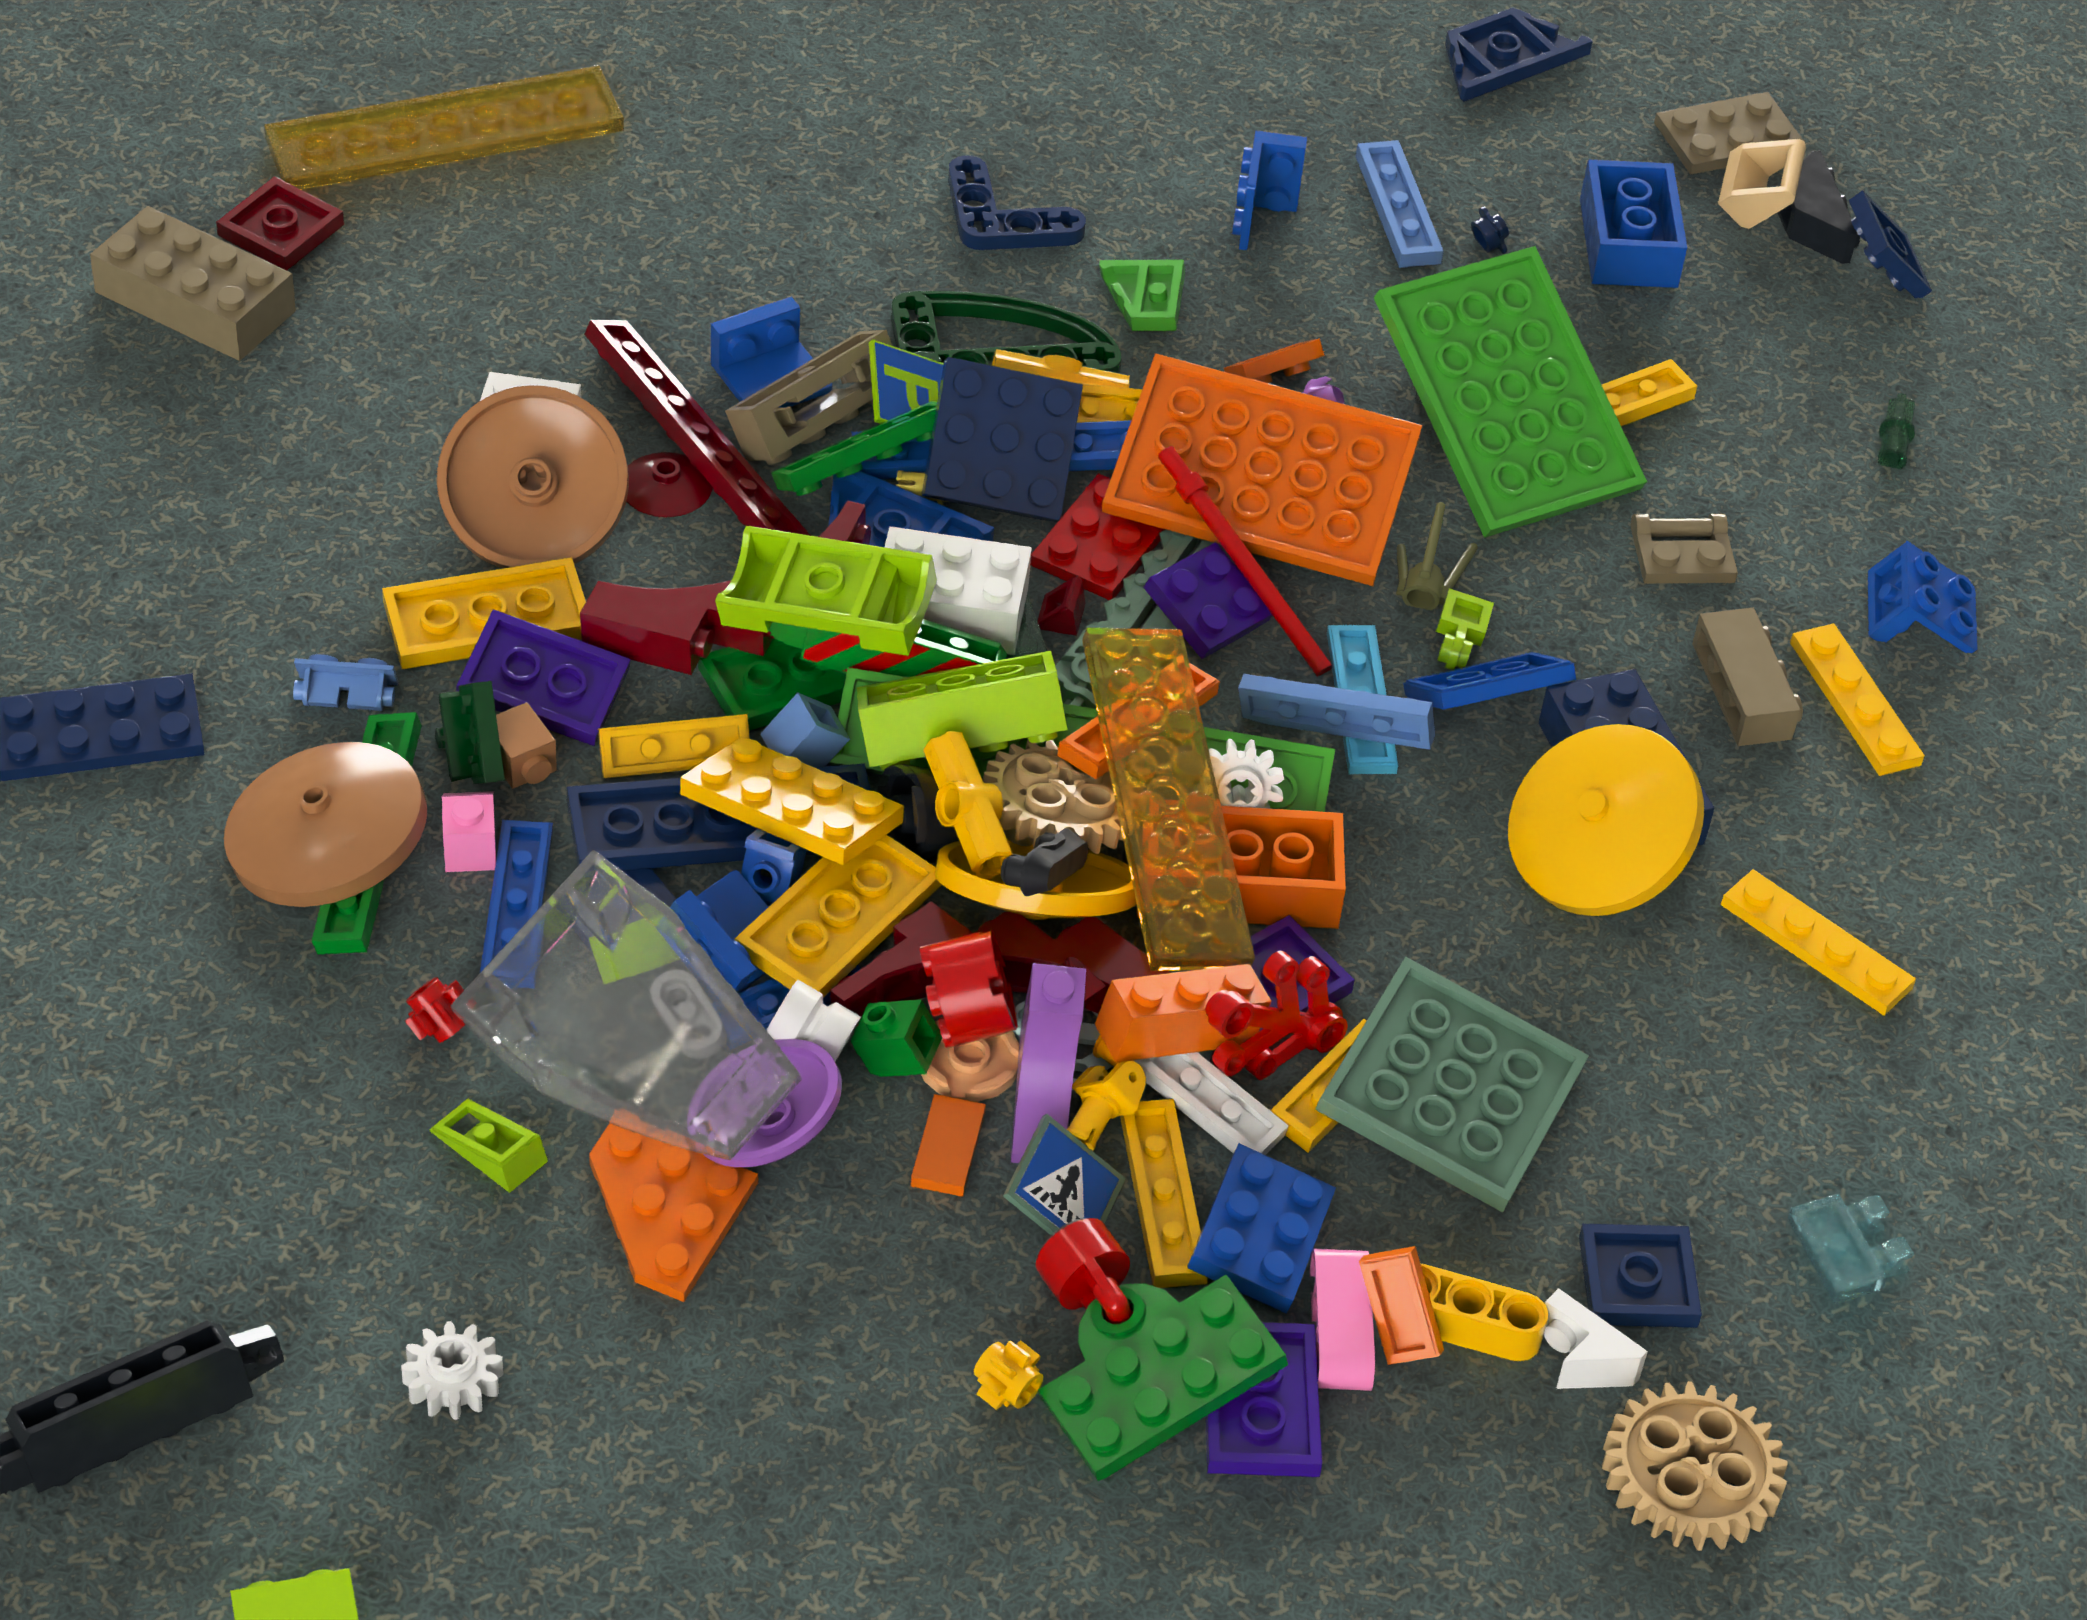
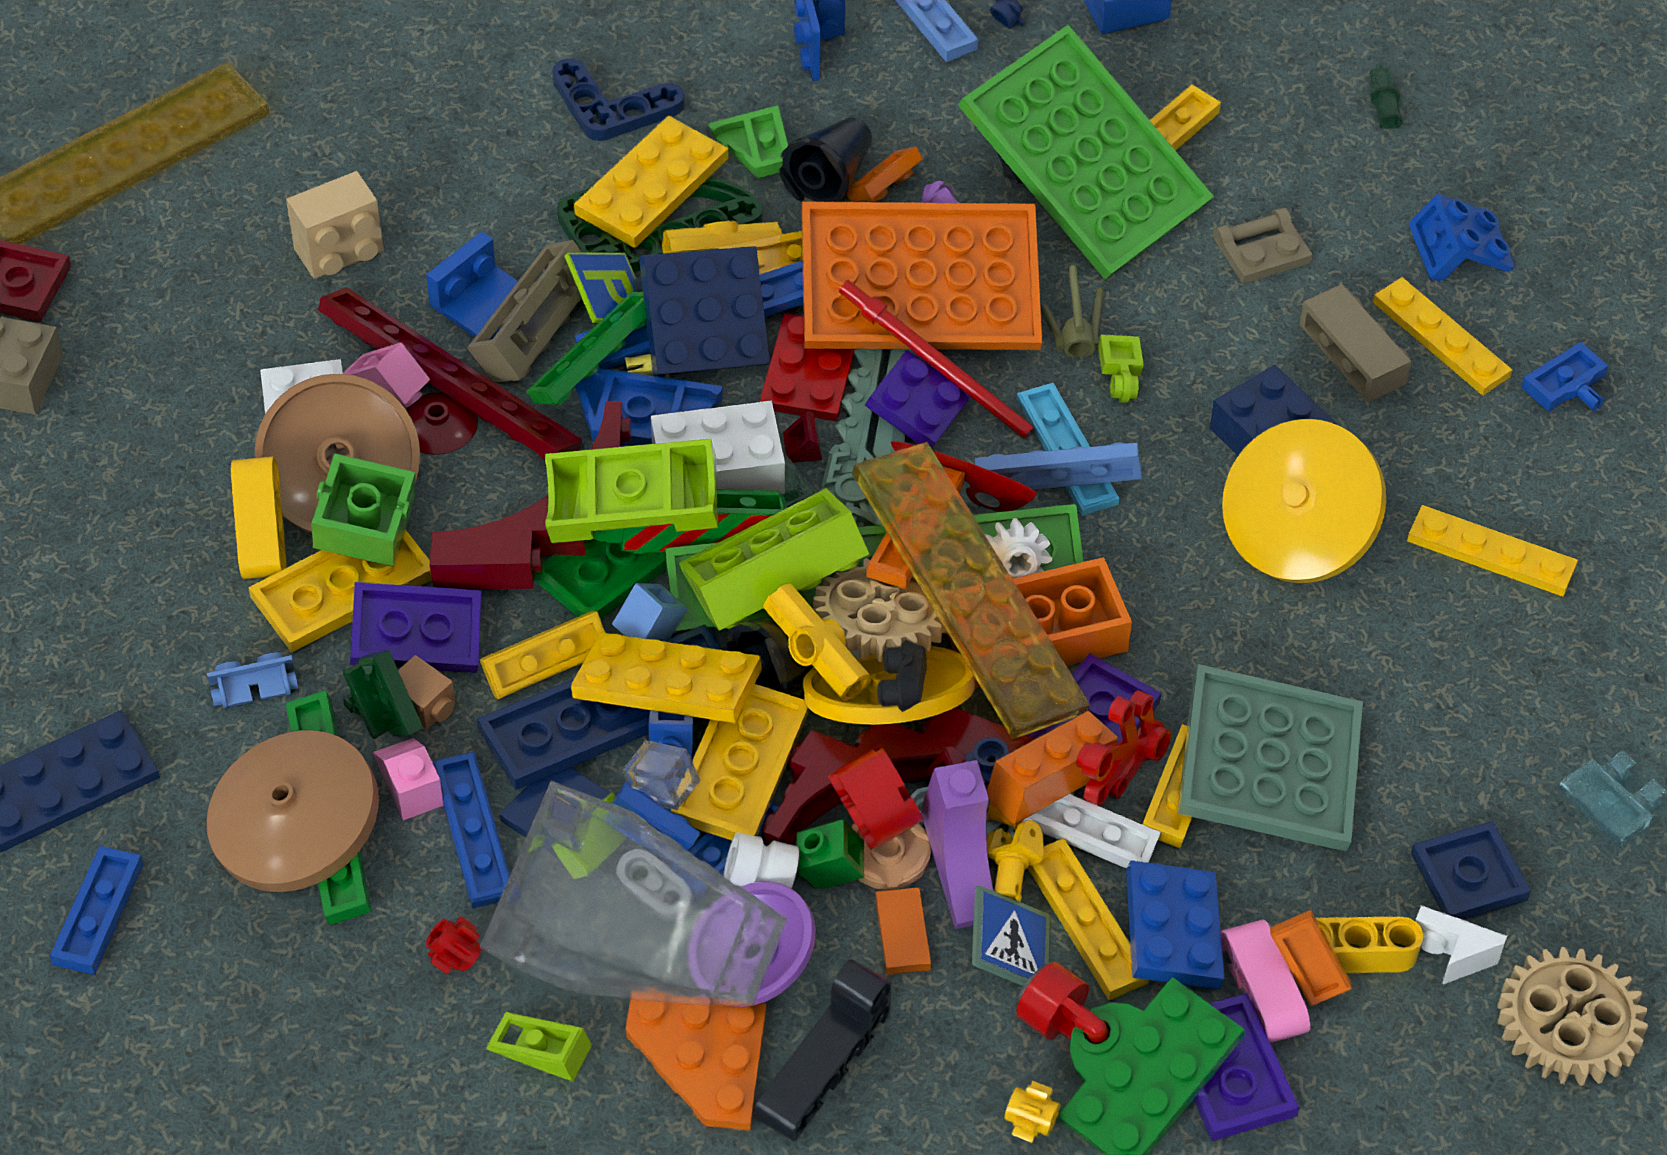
camera: 15 degrees left, 5 degrees up
(73, 865) = (96, 910): none -> blue plate
(420, 517) = (258, 517): none -> yellow beam
(534, 538) = (363, 509): none -> bright green brick
(636, 419) = (393, 370): none -> bright pink slope
(637, 251) = (335, 225): none -> tan brick
(738, 893) = (662, 773): none -> clear brick
(793, 1250) = (819, 1063): none -> black beam
(1007, 300) = (651, 181): none -> yellow plate
(1105, 972) = (985, 750): none -> dark blue plate
(1213, 325) = (825, 161): none -> black cone
(1240, 698) = (1008, 492): none -> red piece
(1490, 680) = (1164, 406): blue tile -> none
(1987, 781) = (1567, 378): none -> blue plate

